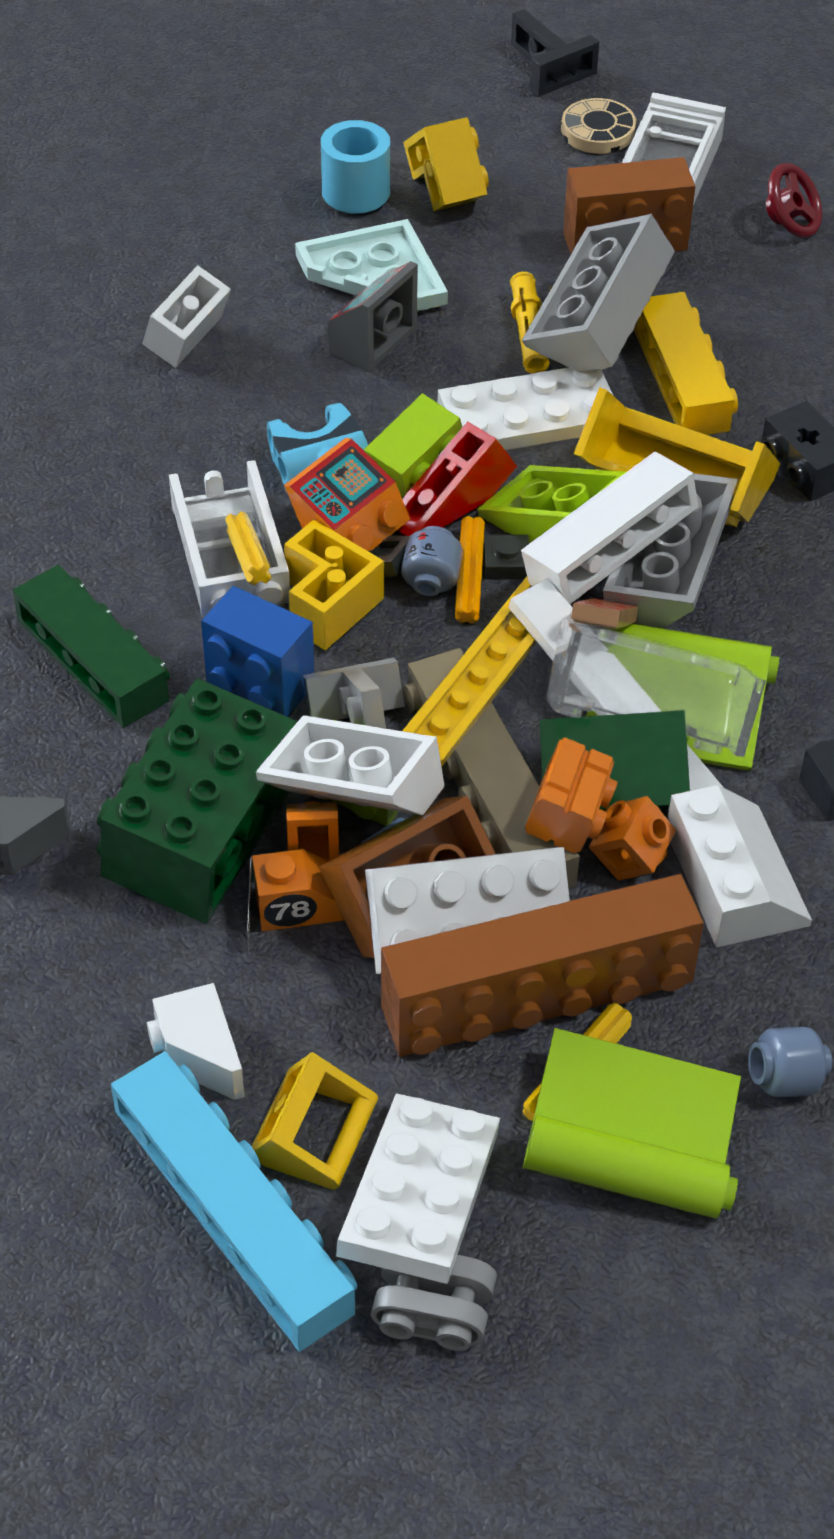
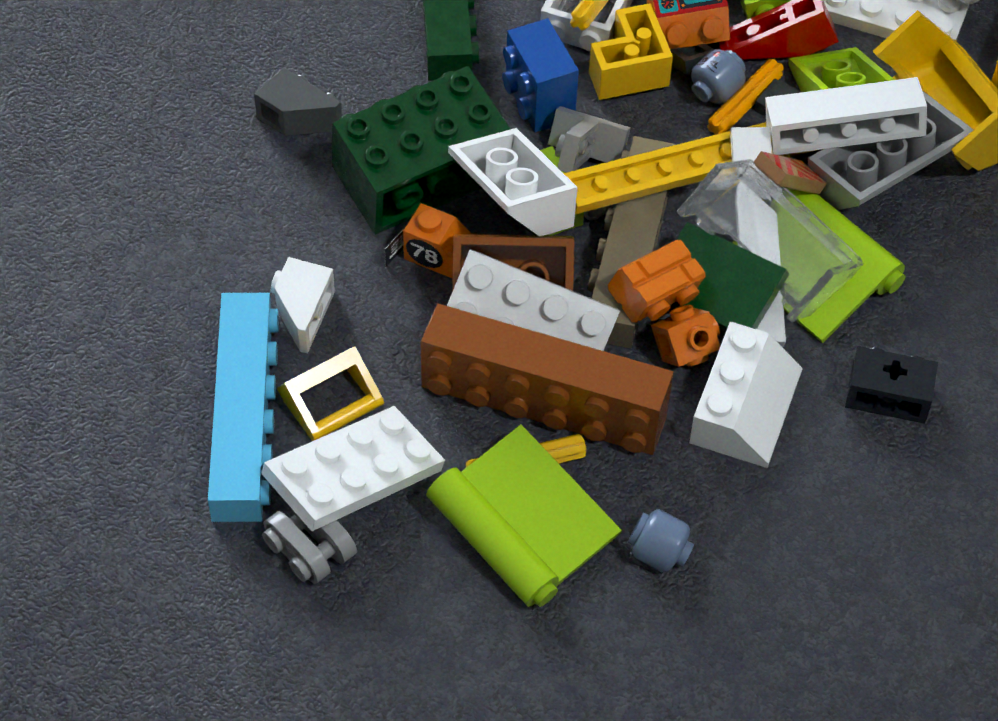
camera: 35 degrees right, 5 degrees up
(313, 828) = (476, 209): orange slope -> none

